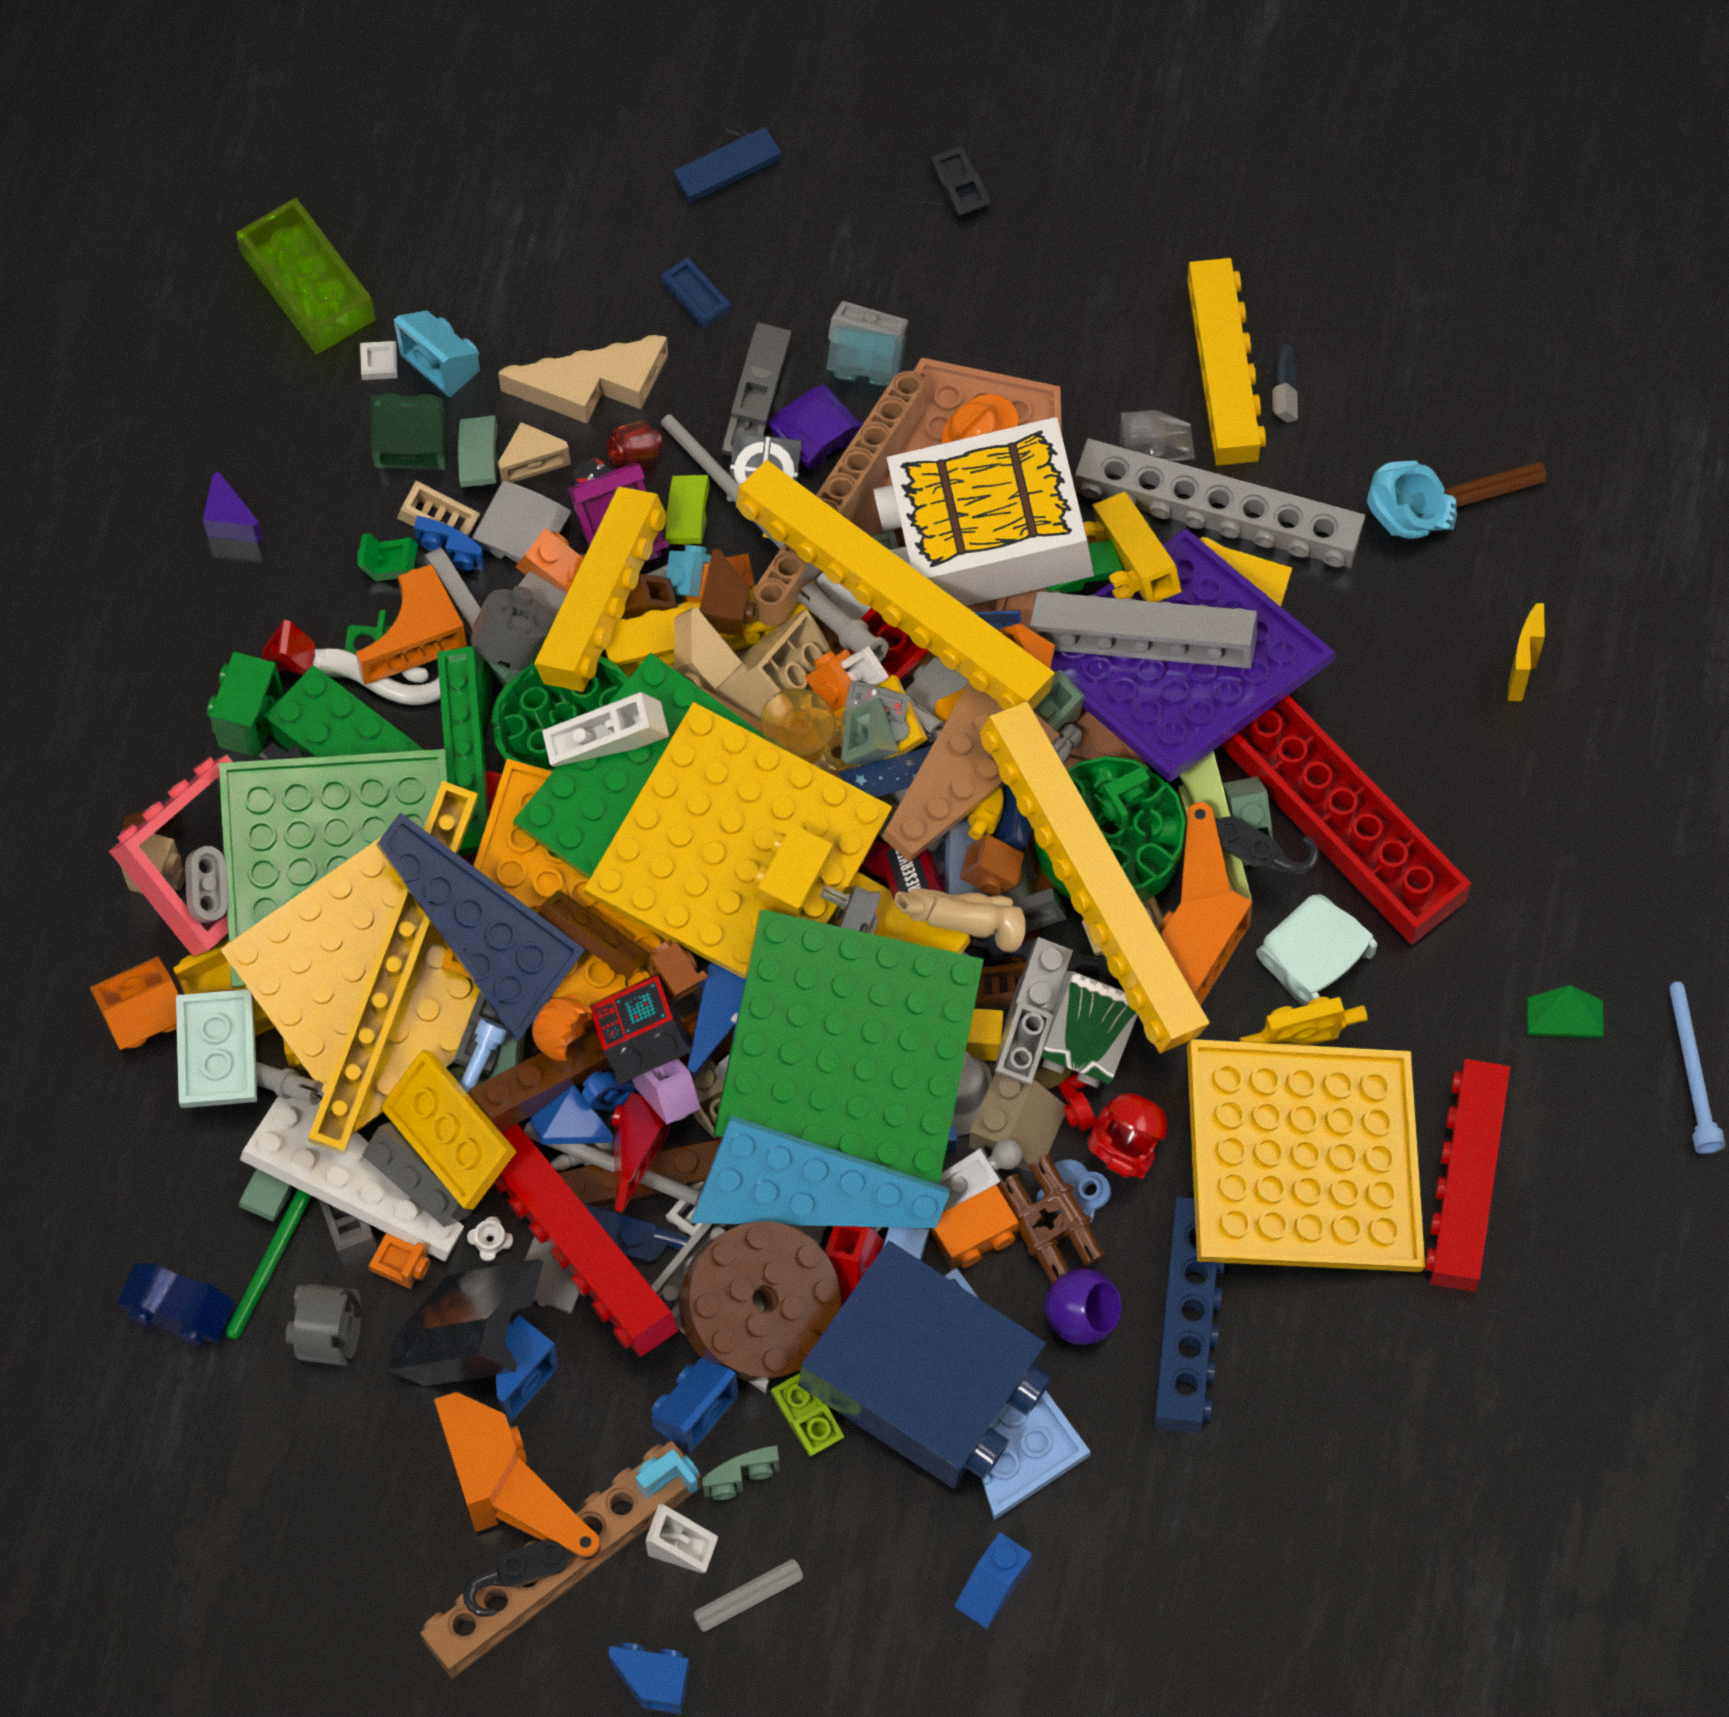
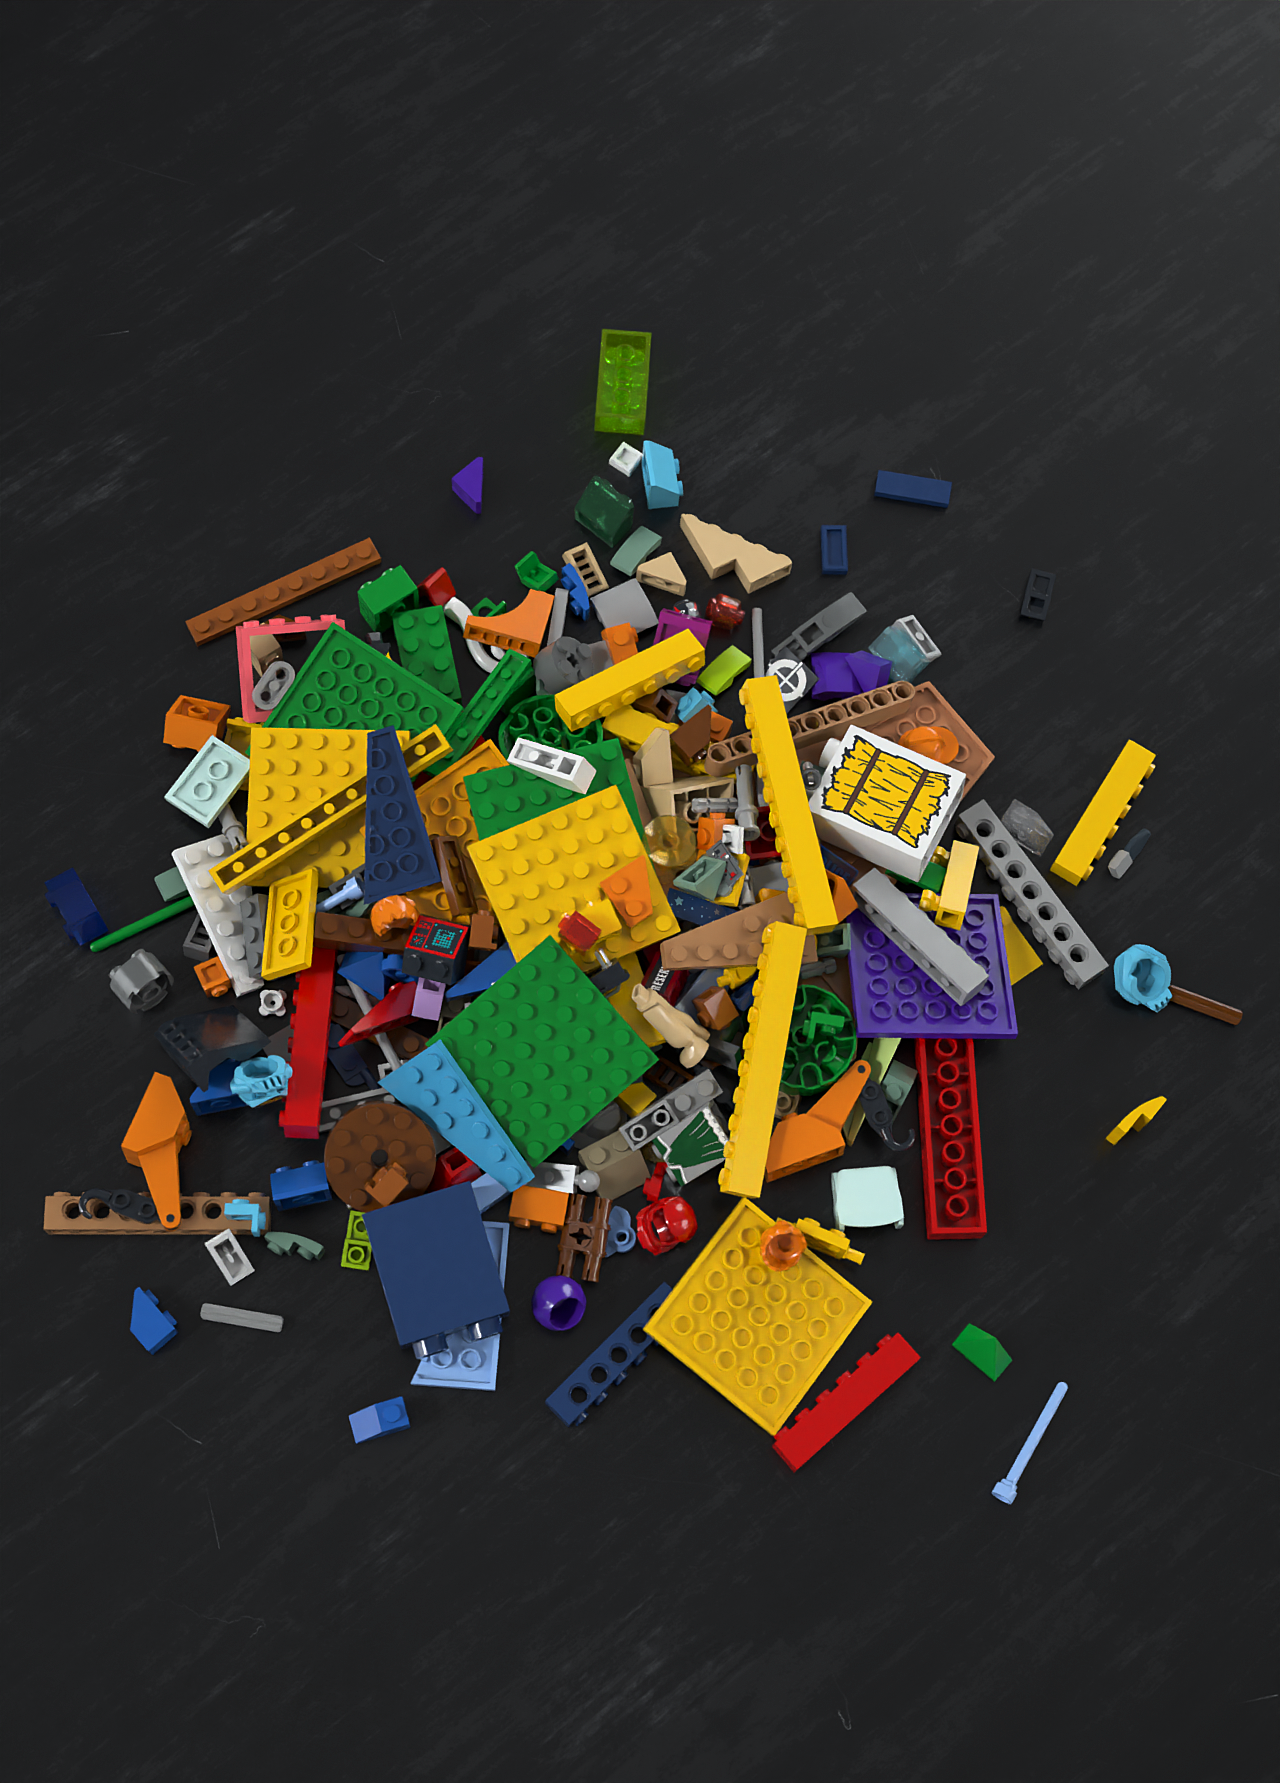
camera: 30 degrees right, 5 degrees up
(110, 788) = (283, 591): none -> dark orange plate
(568, 1309) = (261, 1080): none -> medium azure helmet
(793, 881) = (578, 932): none -> clear red brick
(799, 1315) = (387, 1183): none -> dark orange brick
(806, 802) = (630, 892): none -> orange wing
(812, 650) = (709, 805): none -> light grey axle
(849, 391) = (869, 670): none -> dark purple slope
(895, 539) = (810, 775): none -> dark grey hinge
(1273, 1057) = (782, 1246): none -> orange hair

